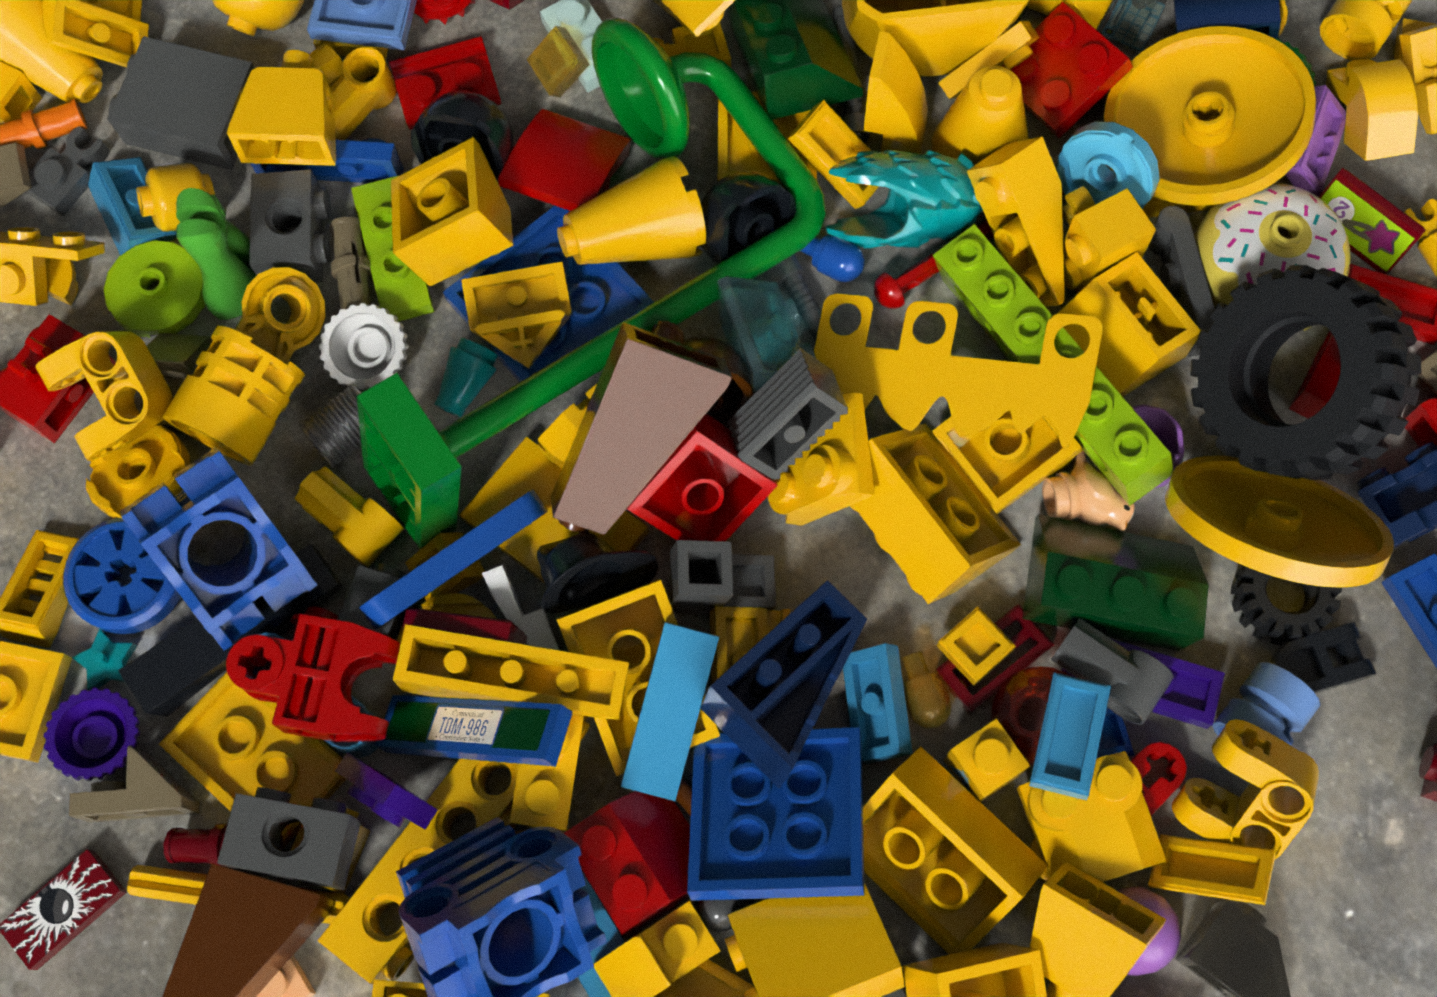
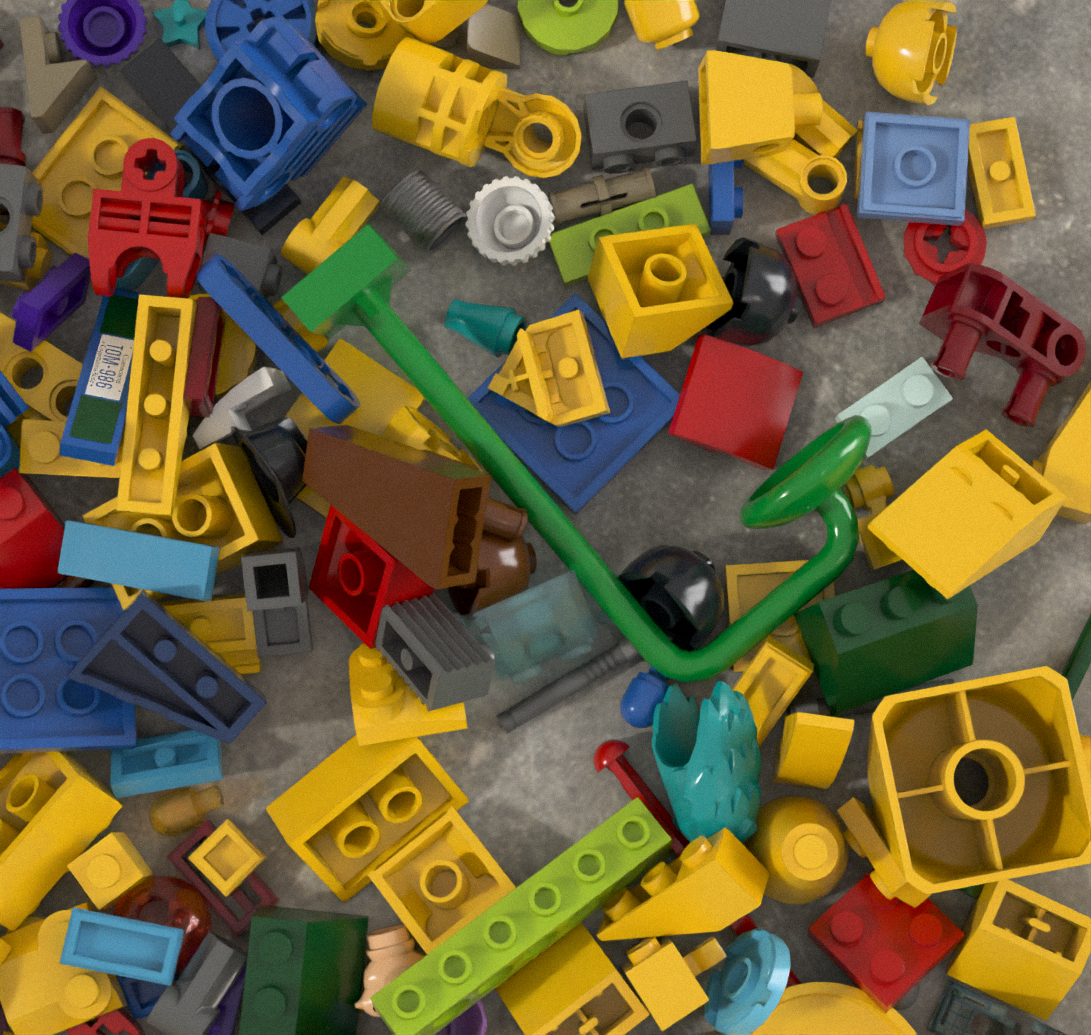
camera: 80 degrees right, 10 degrees up
(218, 250) = (587, 48): bright green piece -> none
(557, 61) = (859, 382): clear yellow tile -> none
(637, 220) = (657, 481): yellow cone -> none
(975, 388) = (502, 790): yellow piece -> none

